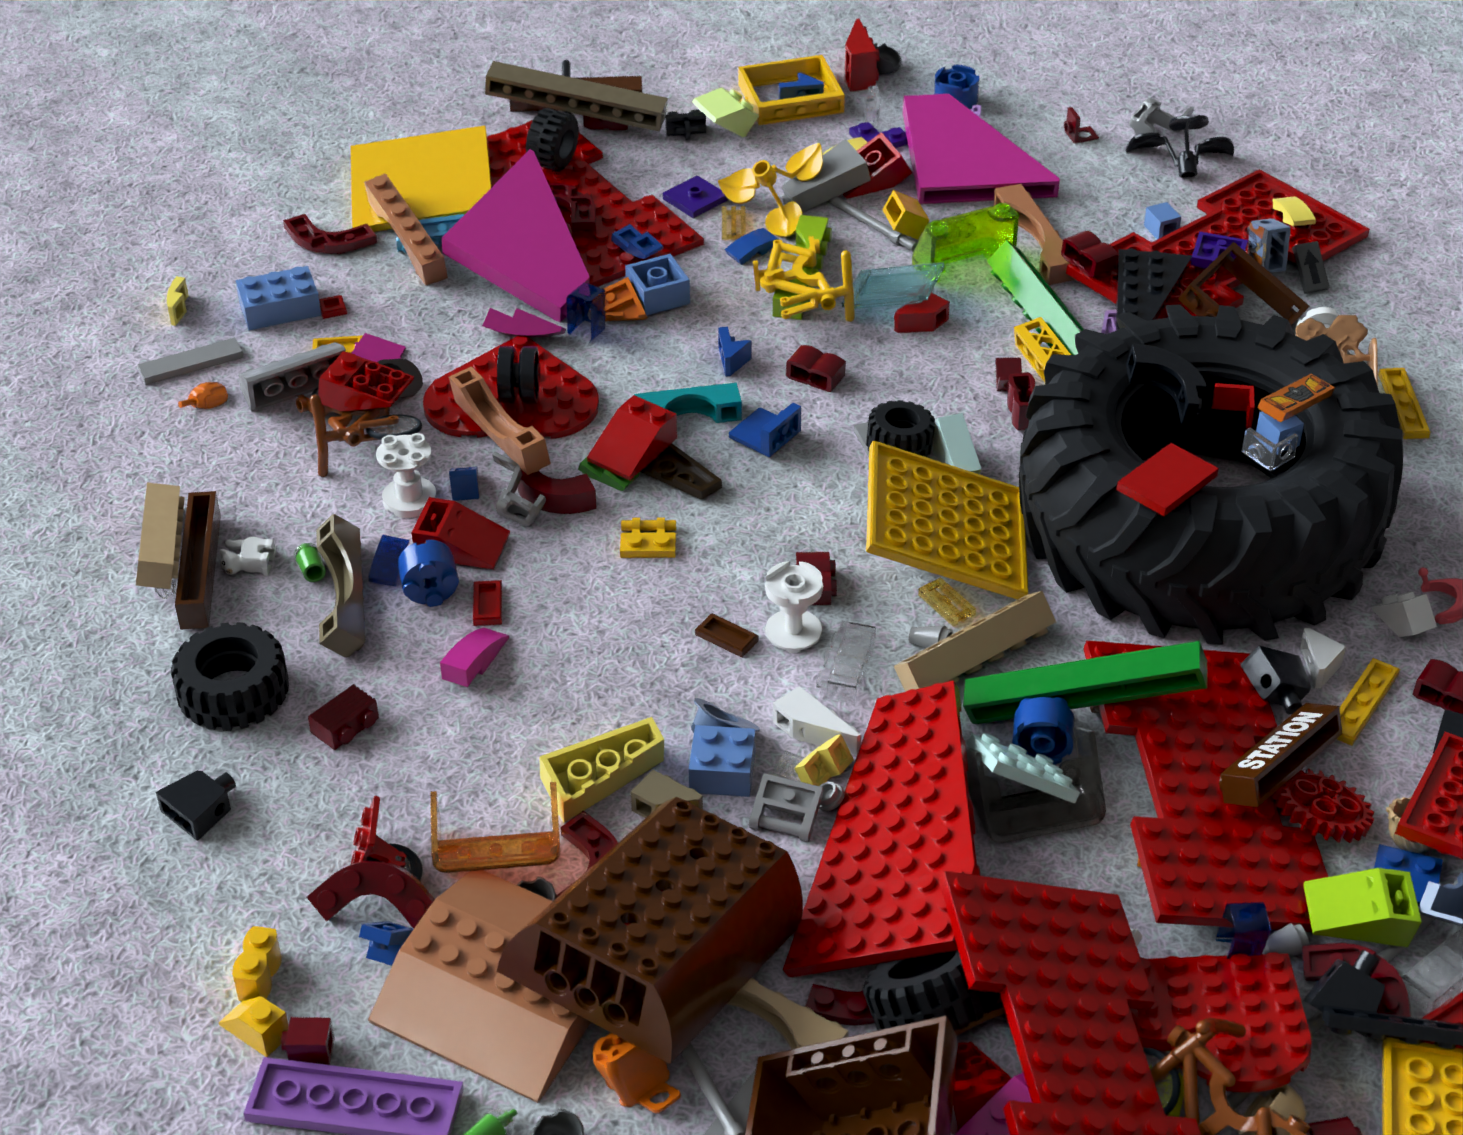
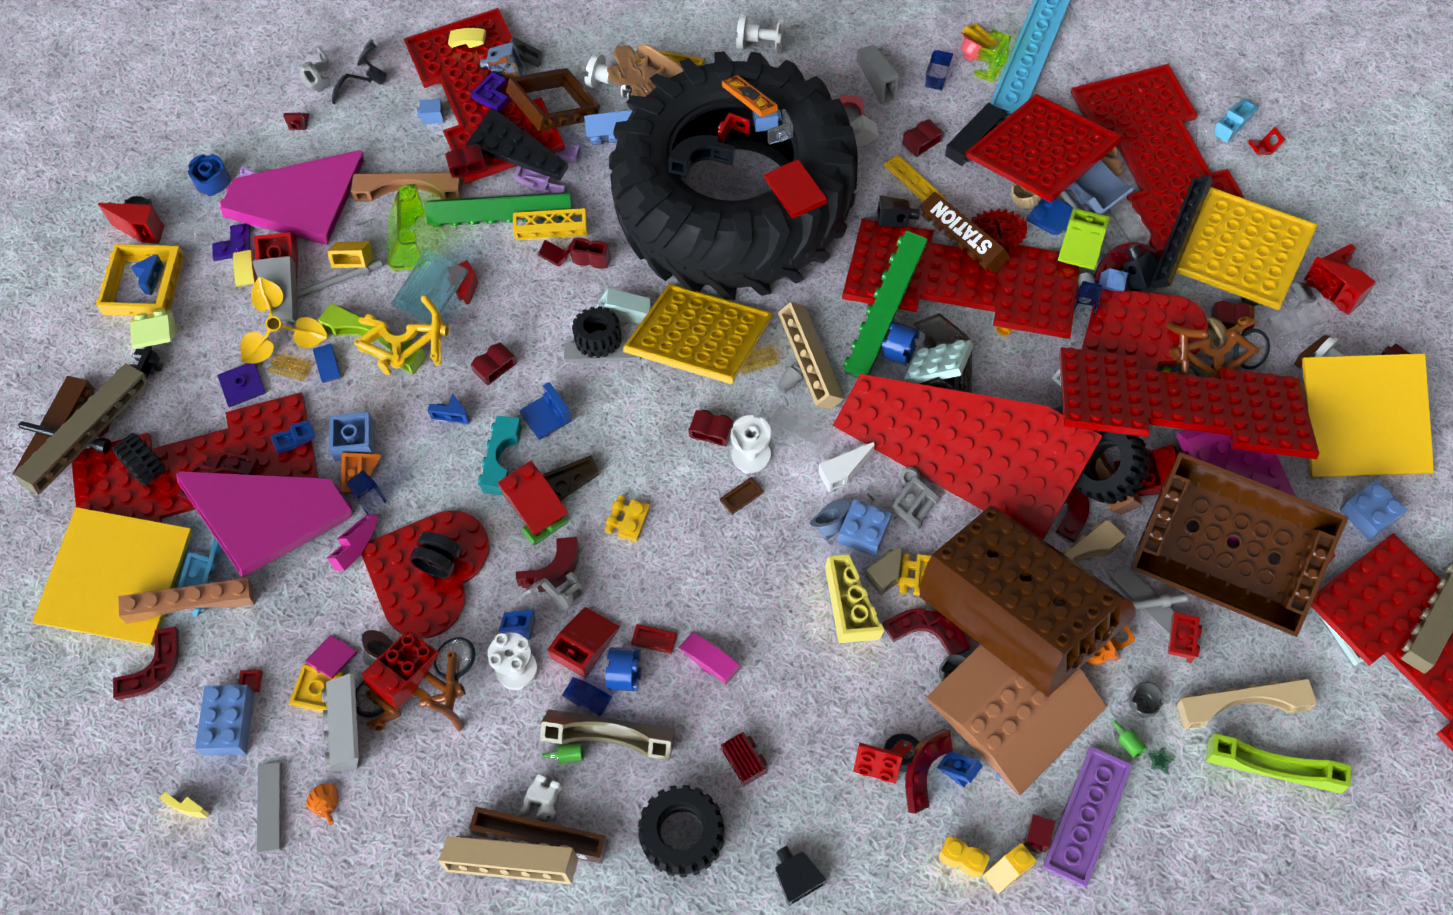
camera: 70 degrees left, 20 degrees up
(494, 851) = (923, 658): clear orange windscreen -> none
(520, 443) = (454, 590): nougat arch -> none
(825, 762) = (882, 468): light yellow slope -> none
(1303, 961) = (1113, 280): none -> medium blue brick
(1321, 656) = (877, 186): white slope -> none

